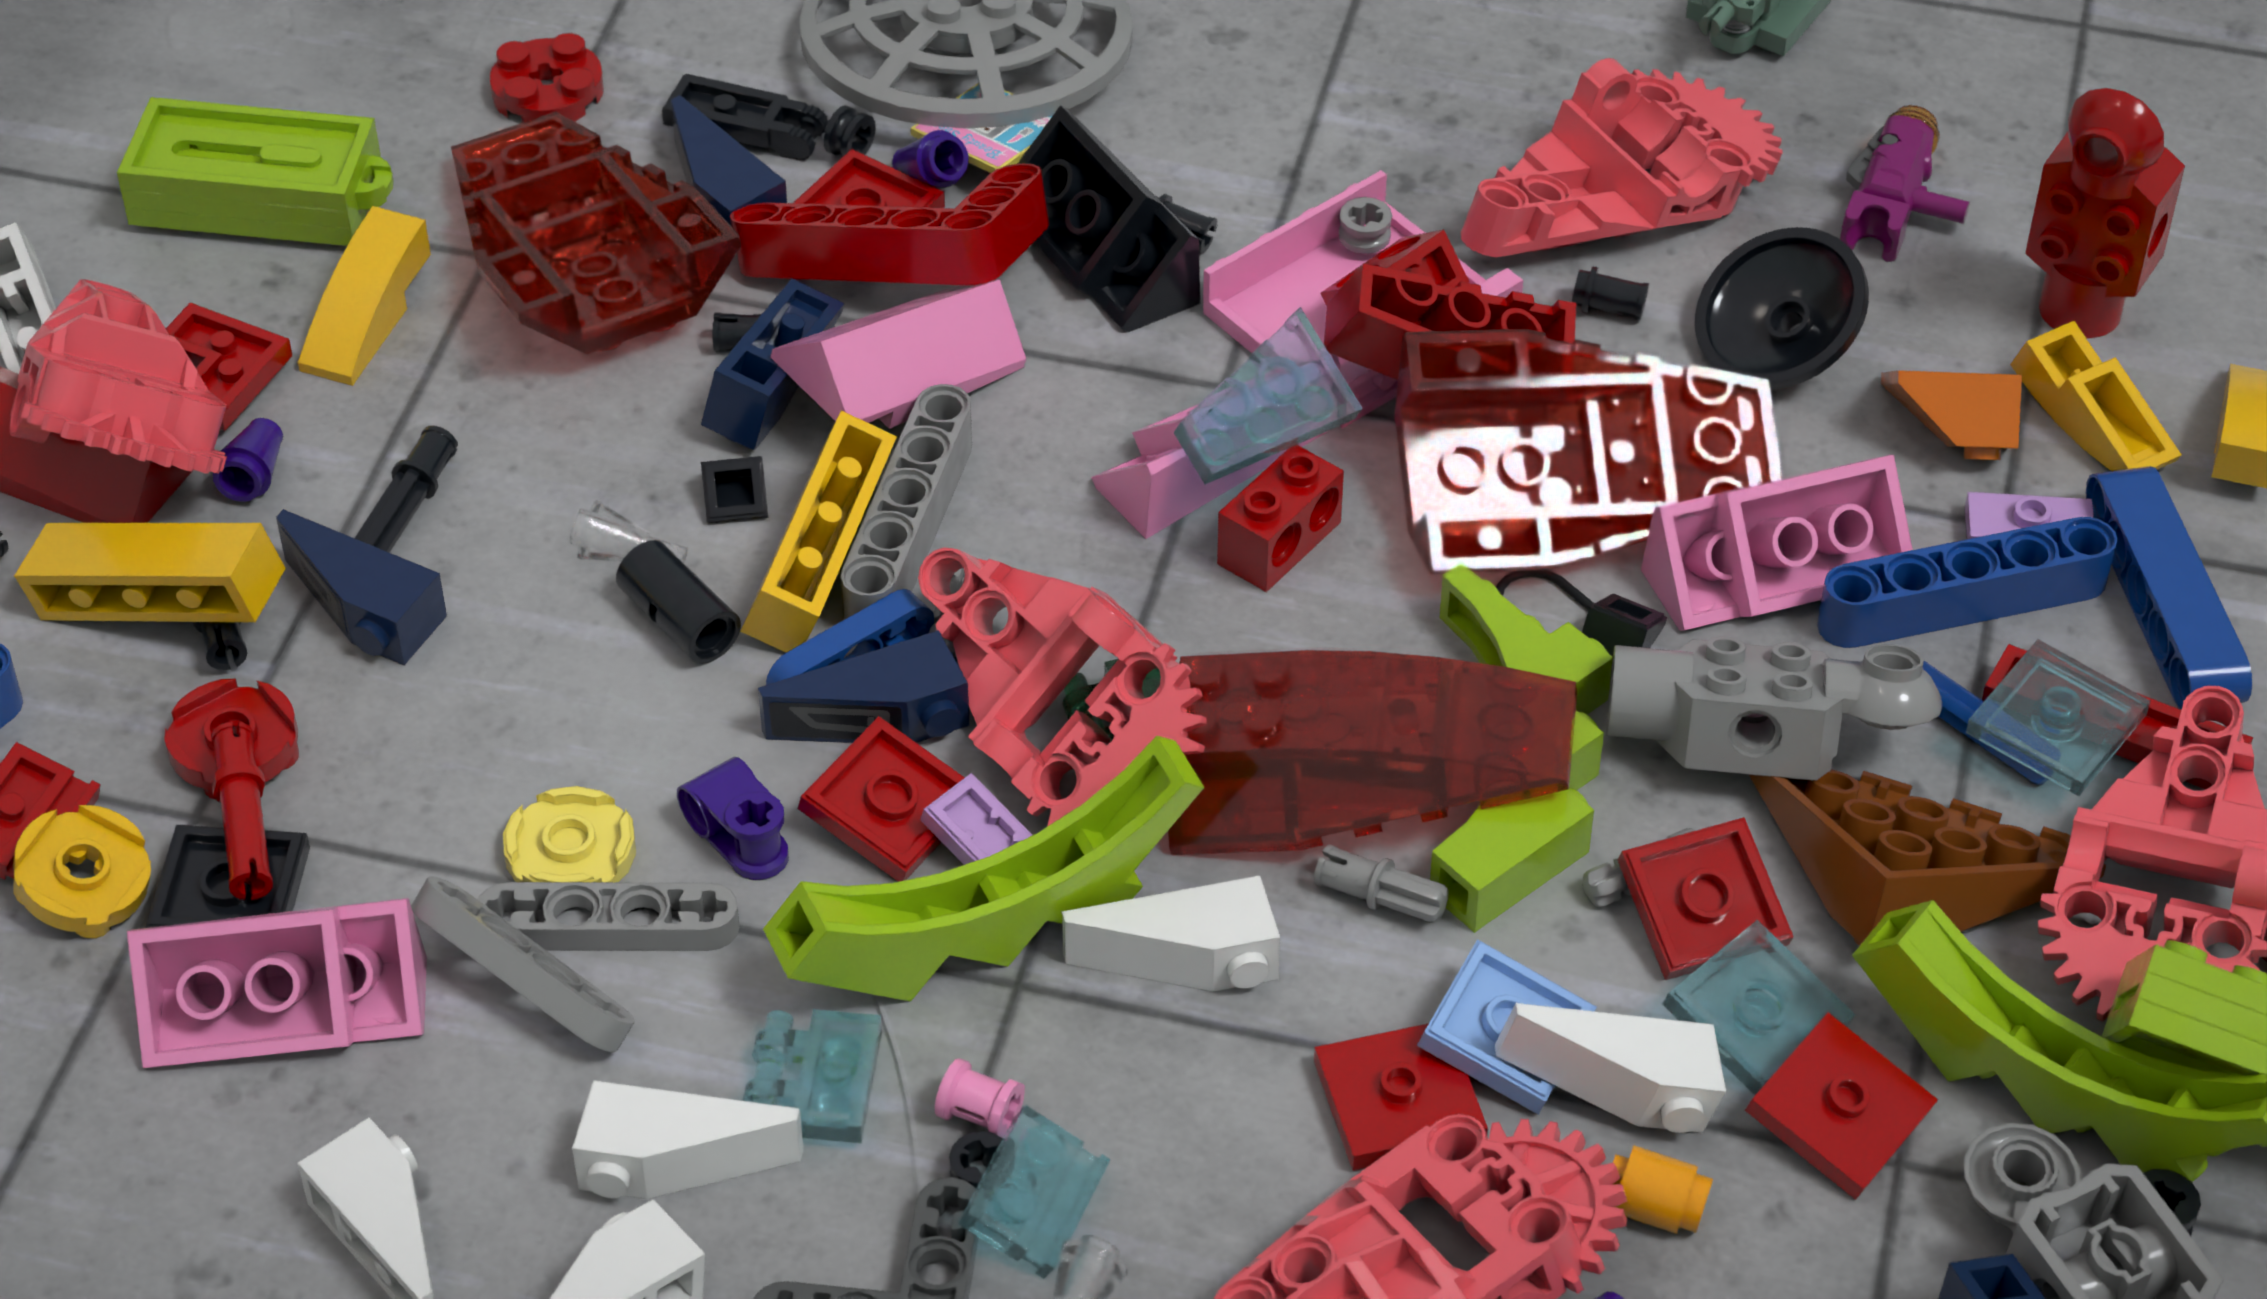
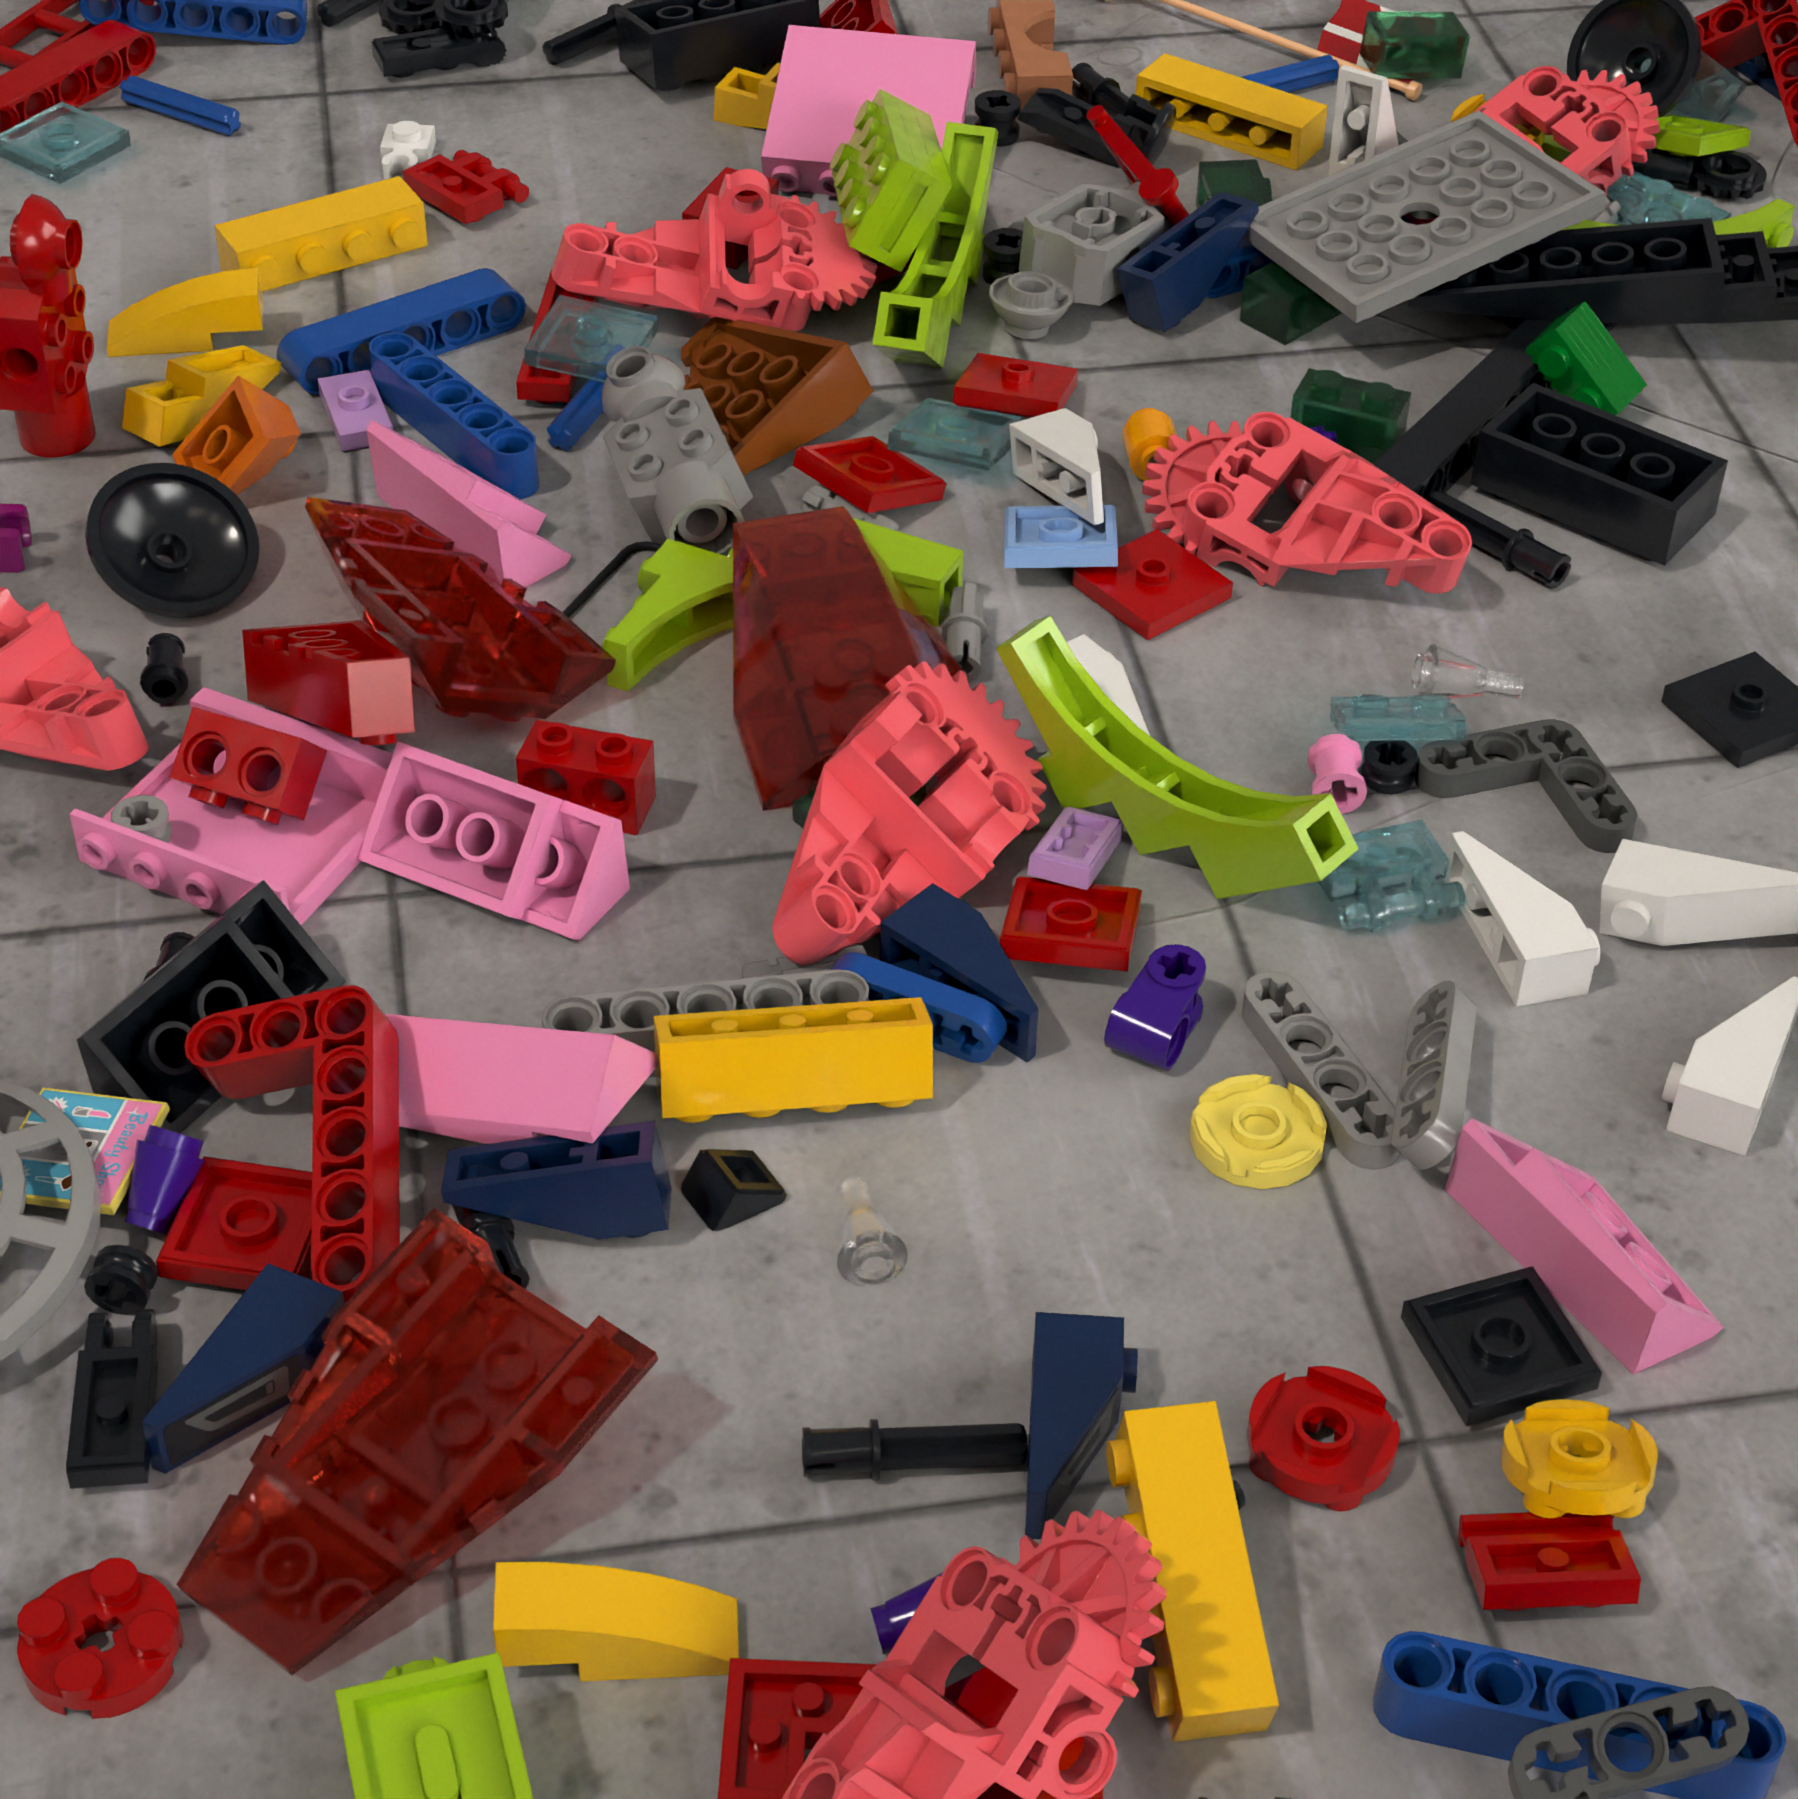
camera: 115 degrees left, 5 degrees down
(239, 789) = (1413, 1349): red pin -> none
(678, 601) = (928, 1149): black pin -> none
(1269, 403) = (503, 752): clear light blue wing -> none
(1623, 623) = (600, 574): black slope -> none

